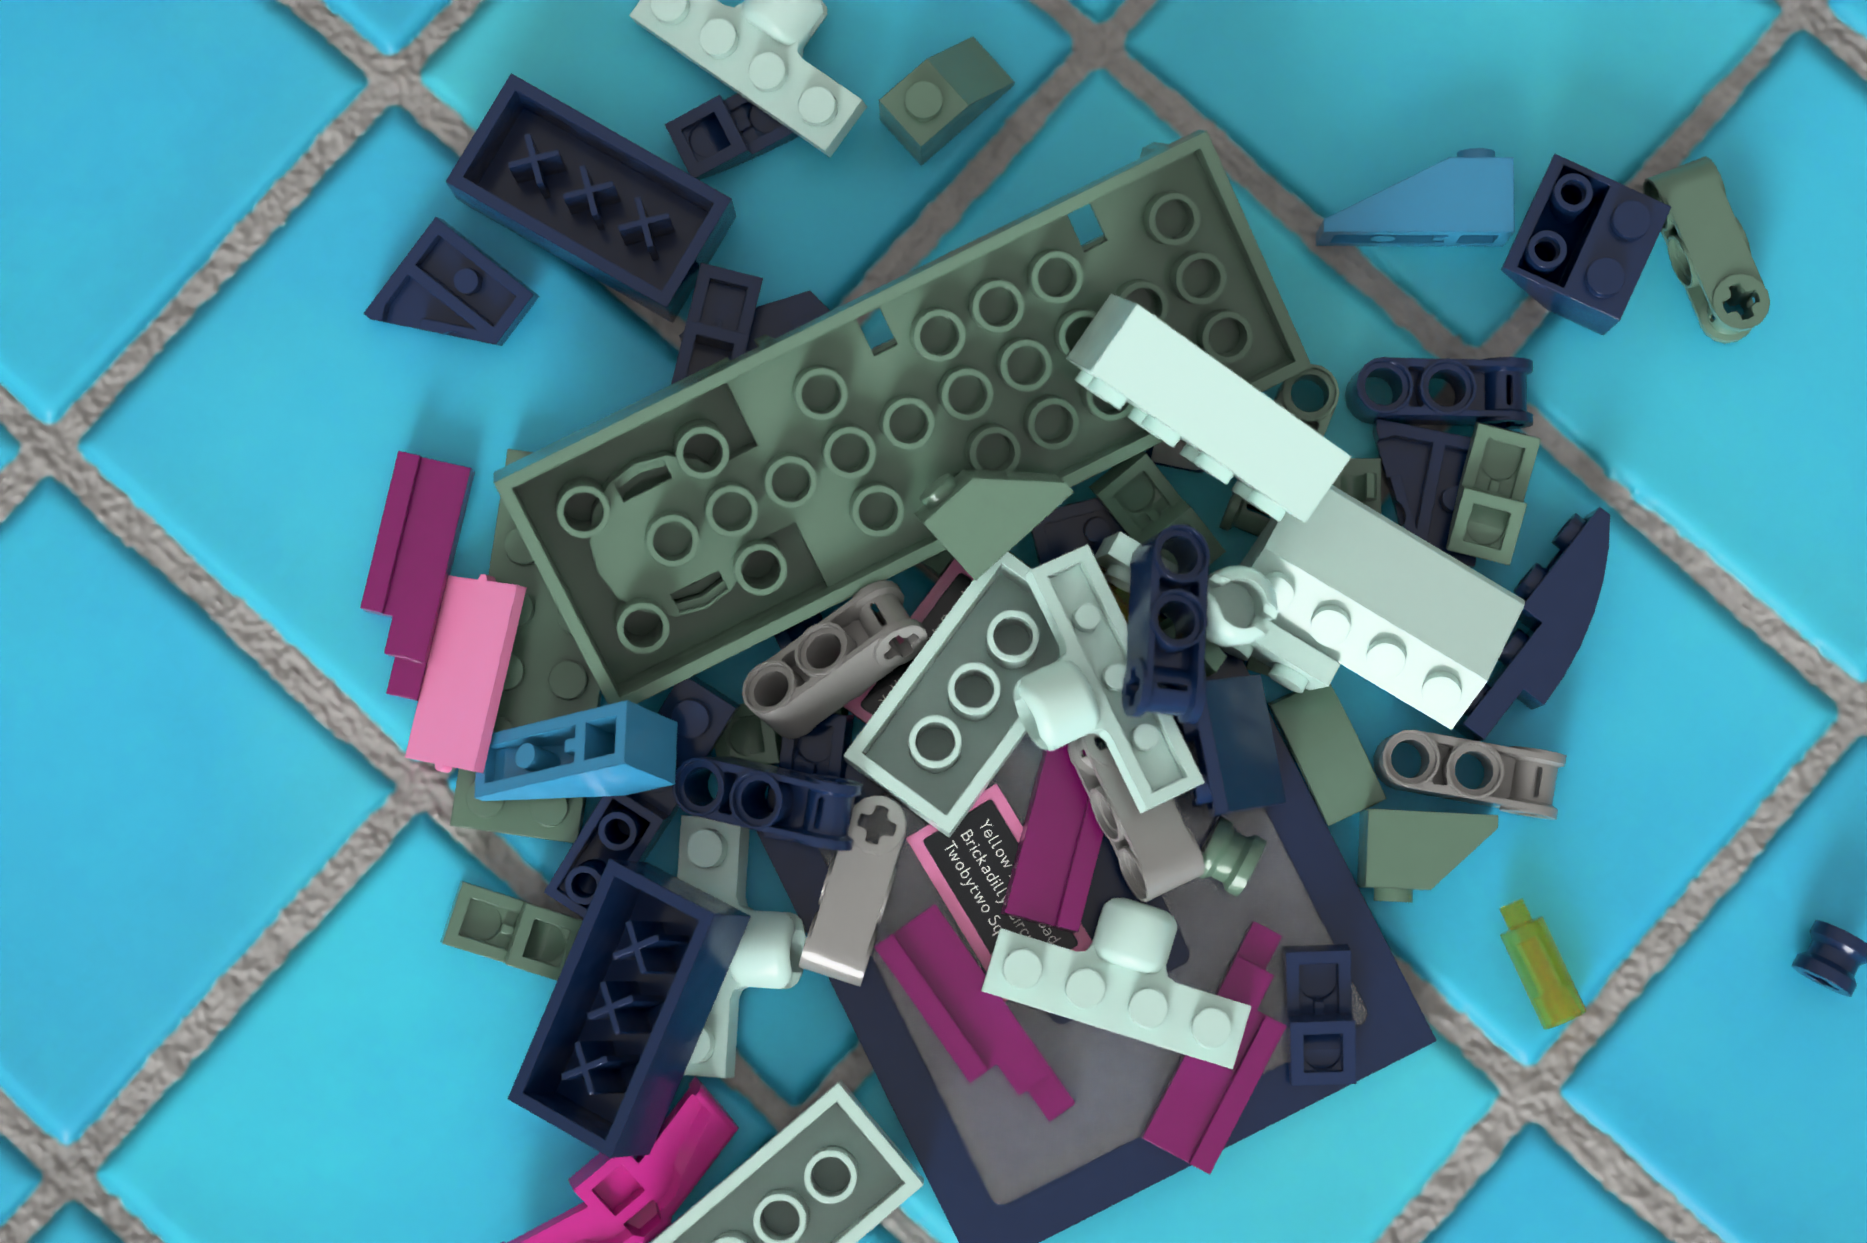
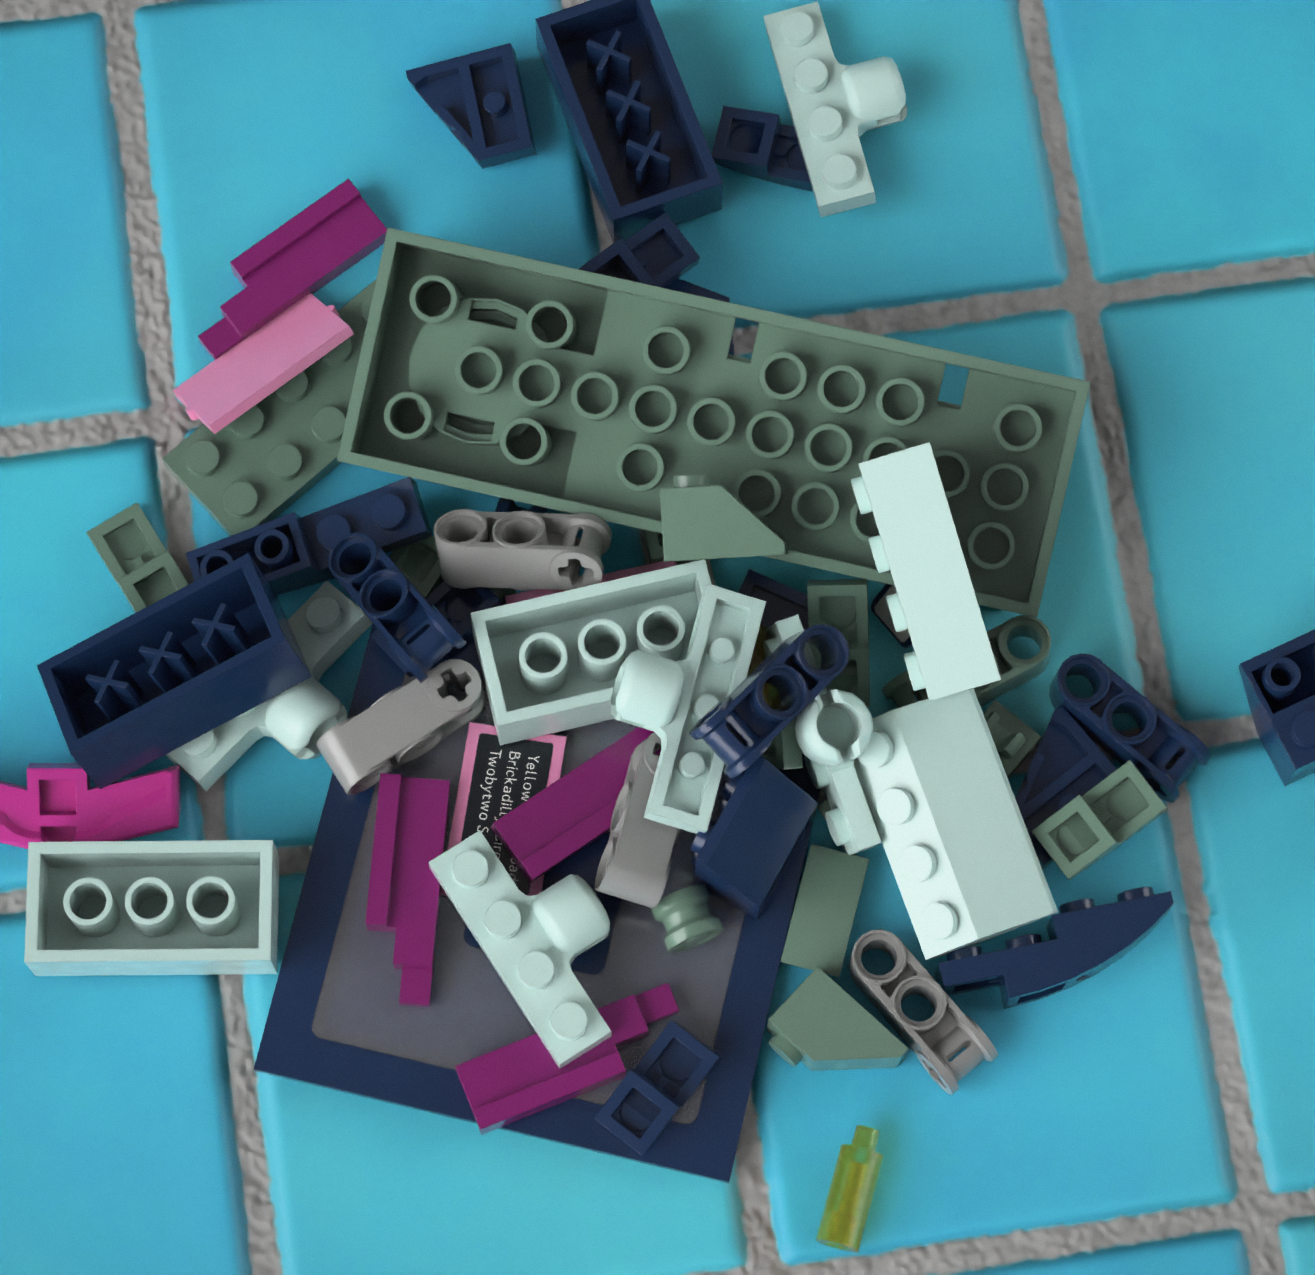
camera: 40 degrees right, 10 degrees down
(581, 754) = (293, 472): dark azure slope -> none
(942, 97) = (937, 240): sand green slope -> none
(1448, 204) = (1231, 590): dark azure slope -> none

